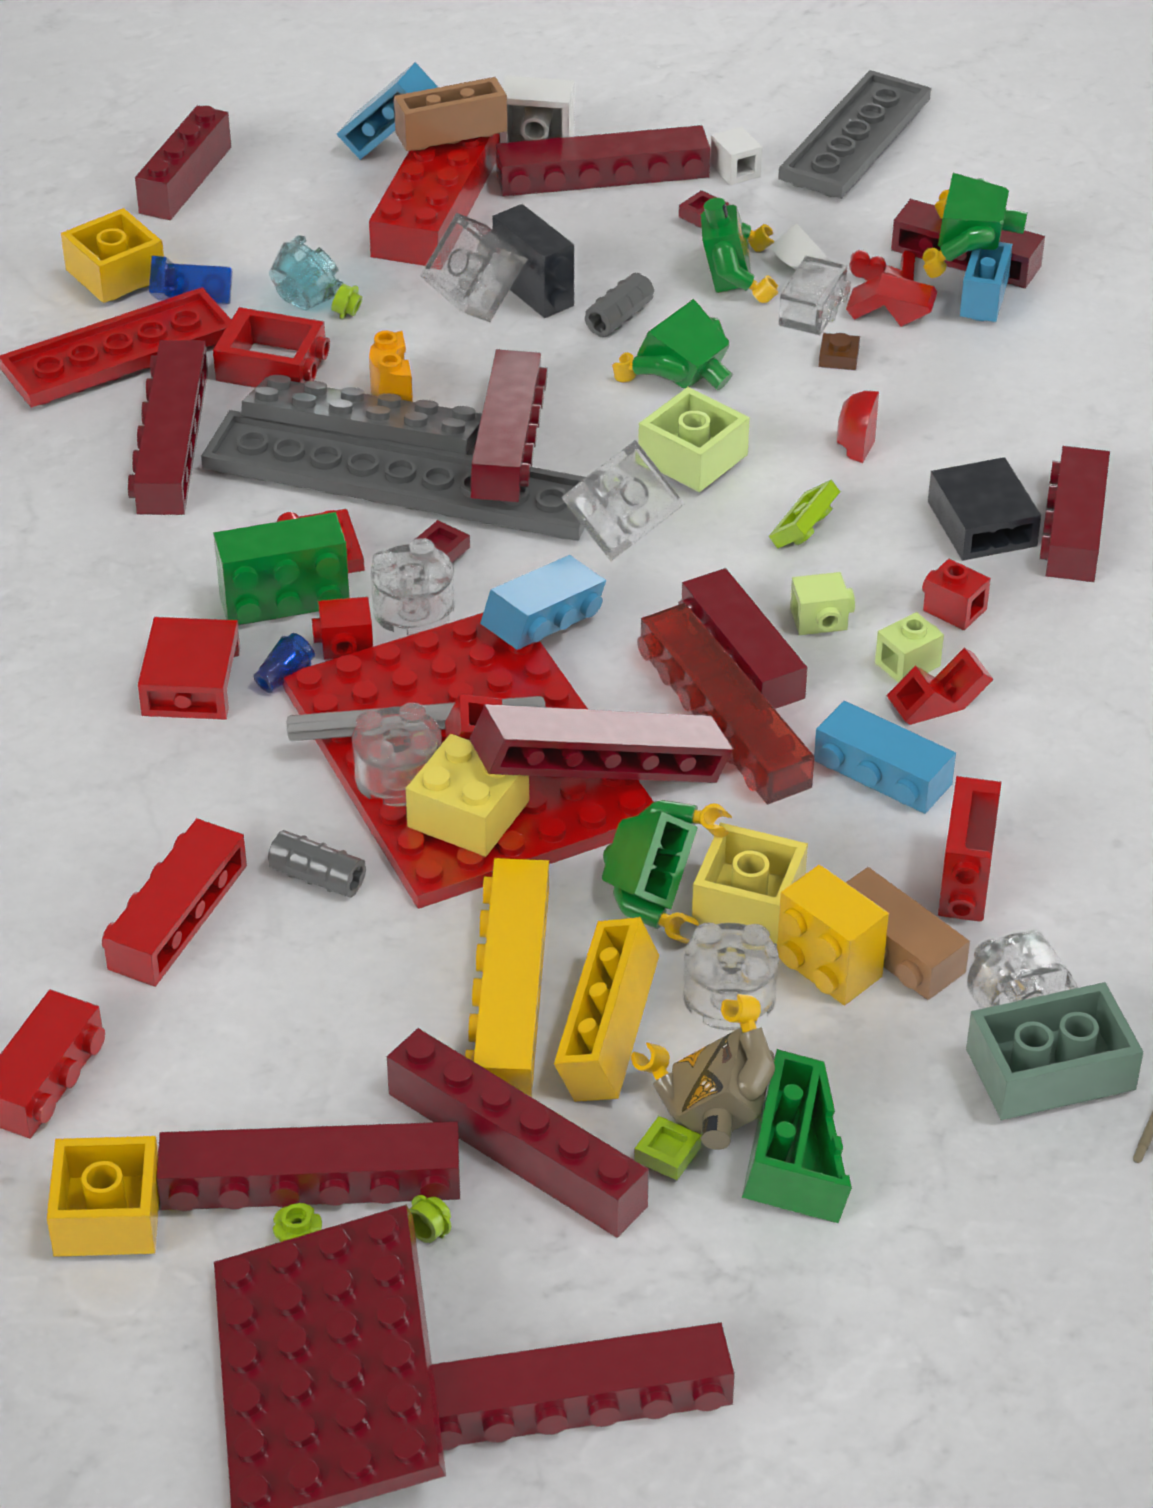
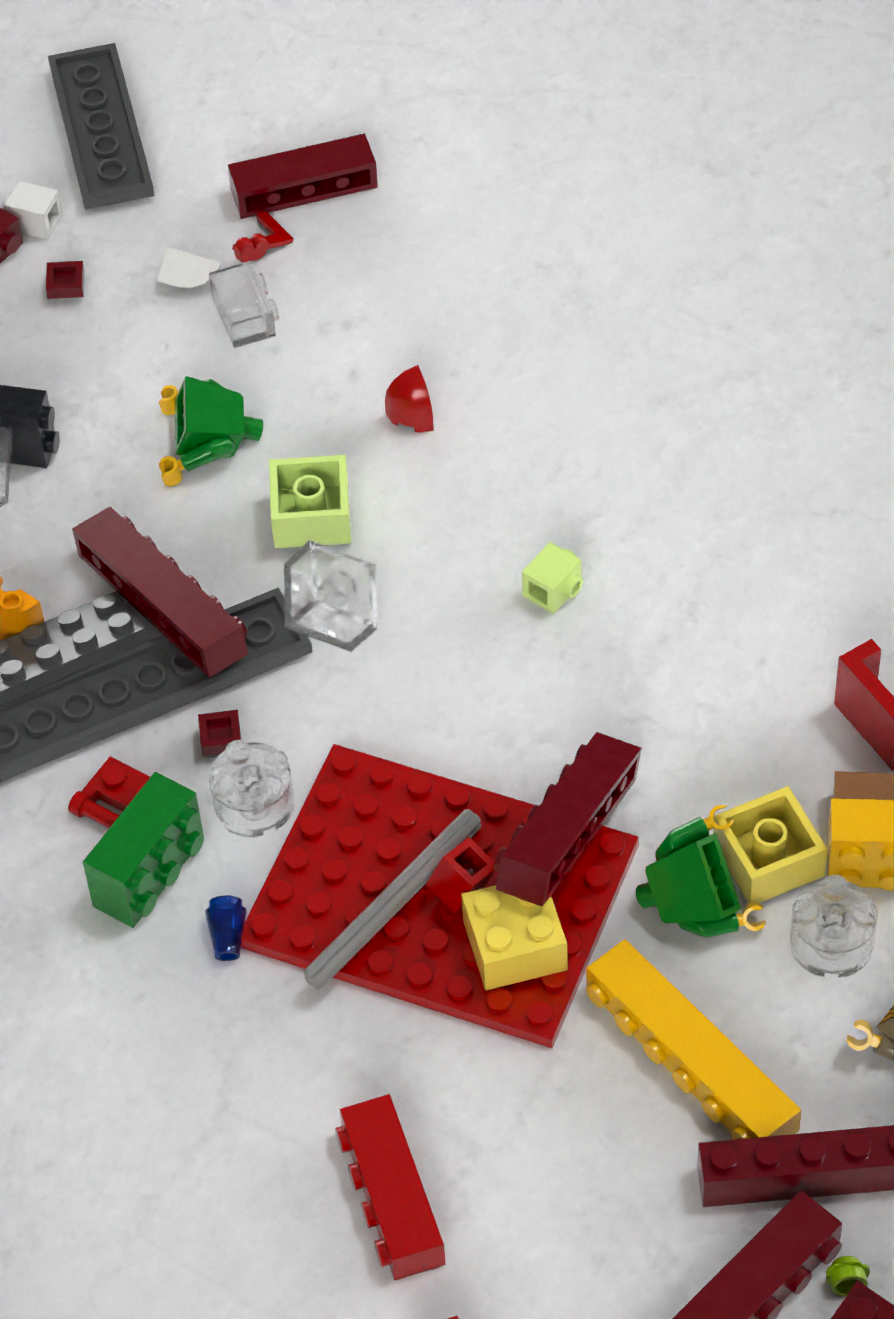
camera: 40 degrees left, 10 degrees up
(188, 668) = (163, 986): red panel -> none
(317, 863) = (452, 1072): dark grey axle -> none
(343, 626) = (238, 862): red brick -> none
(392, 749) = (428, 939): clear brick -> none
(543, 602) = (372, 728): dark azure brick -> none
(607, 1010) = (790, 1021): yellow brick -> none
(619, 304) = (102, 415): dark grey axle -> none
(713, 685) = (578, 709): clear red brick -> none
(728, 250) = (141, 308): green torso -> none
(747, 636) = (534, 649): dark red brick -> none
(809, 509) = (455, 508): lime plate -> none
(839, 351) = (311, 341): reddish brown plate -> none
(884, 756) = (734, 672): dark azure brick -> none
(902, 297) = (315, 260): red slope -> none
(909, 644) = (653, 569): yellowish green brick -> none
(925, 697) = (708, 587): red slope -> none
(956, 594) = (633, 499): red brick -> none
(972, 219) = (318, 157): green torso -> none
(984, 508) = (572, 410): black brick -> none
(985, 283) = (361, 203): dark azure brick -> none
(1077, 513) = (640, 368): dark red brick -> none

